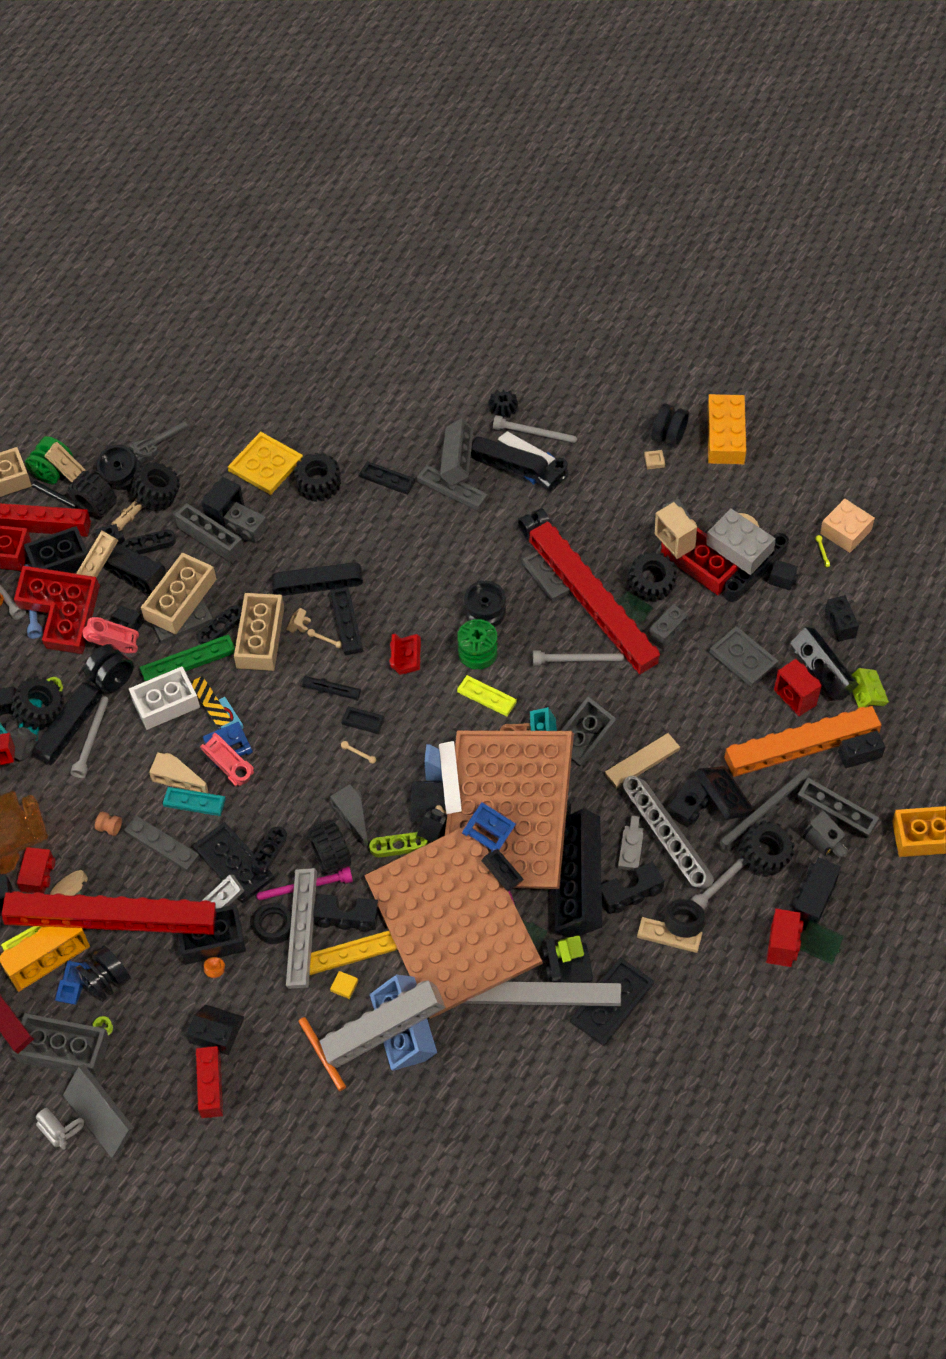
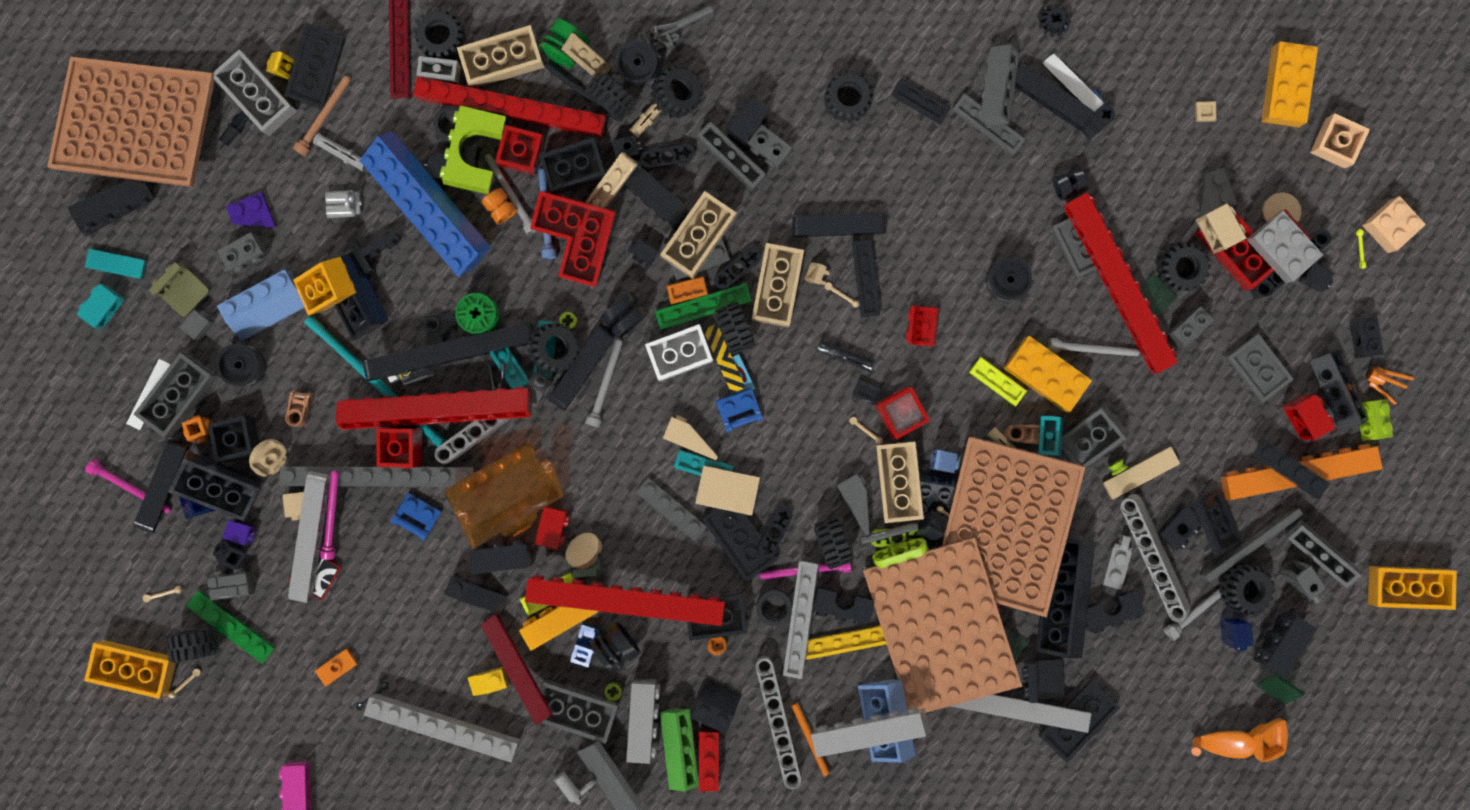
camera: 10 degrees right, 30 degrees up
(107, 632) = (626, 274): coral piece -> none
(108, 823) = (621, 484): nougat wheel -> none
(133, 1044) = (641, 720): none -> light grey brick
(170, 646) = (687, 290): none -> orange plate
(175, 1073) = (679, 749): none -> bright green brick
(217, 667) = (734, 328): none -> black tyre
(218, 814) = (727, 490): none -> tan tile
(225, 892) = (728, 577): light grey plate -> none
(227, 760) = (740, 433): coral piece -> none
(265, 463) = (793, 68): yellow plate -> none
(284, 1045) = (778, 731): none -> light grey beam
(344, 984) = (835, 675): yellow tile -> none
(388, 837) = (889, 533): none -> dark grey bar
(390, 725) = (902, 412): none -> piece
(393, 787) = (899, 482): none -> tan slope
(401, 853) = (910, 549): none -> lime beam
(450, 777) = (956, 483): white sticker -> none
(477, 644) = (988, 335): green wheel -> none
(491, 822) = (994, 547): blue plate -> none
(500, 423) = (1048, 45): light grey piece -> none
(502, 869) = (997, 595): black plate -> none
(533, 680) = (1047, 374): none -> light orange brick
(569, 948) = (1048, 669): lime bracket -> none
(616, 755) = (1117, 466): none -> lime bush
(657, 932) = (1140, 659): tan tile -> none
(670, 425) = (1231, 77): black wheel -> none
(681, 928) = (1168, 641): black tyre -> none
(763, 890) = (1236, 633): none -> clear blue brick
(781, 465) = (1339, 141): none -> light nougat brick
(784, 938) = (1247, 684): red brick -> none
(788, 732) = (1290, 469): none -> black plate
(816, 993) = (1264, 741): none -> orange piece
(861, 749) = (1356, 489): black brick -> none
(862, 651) = (1378, 376): none -> orange plant

